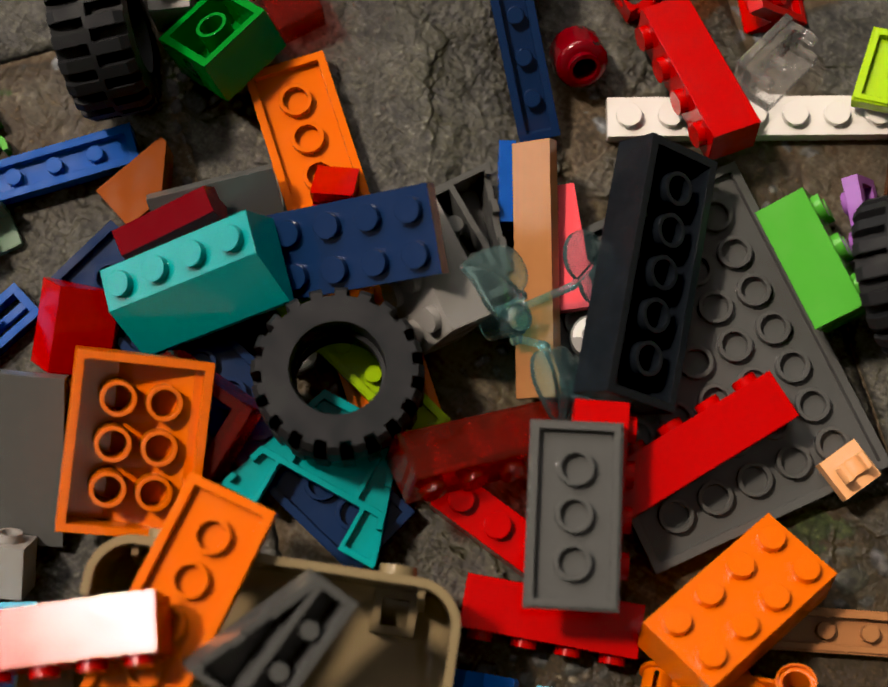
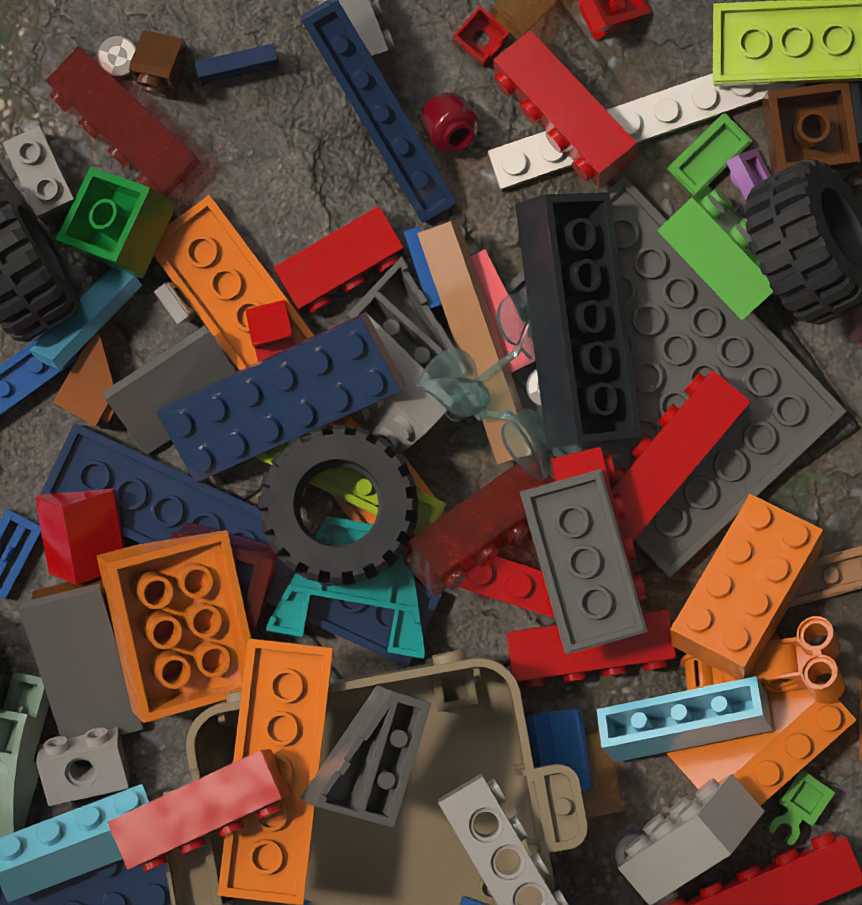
camera: 25 degrees left, 10 degrees up
(159, 122) = (94, 311): none -> dark azure tile
(170, 221) = (139, 418): dark red piece -> none
(199, 283) = (184, 463): teal slope -> none
(252, 139) = (175, 303): none -> light grey tile
(426, 150) = (340, 261): none -> red brick
(776, 63) = (633, 69): clear hinge -> none
(825, 169) = (708, 155): none -> bright green tile
(848, 470) = (809, 430): light nougat tile -> none

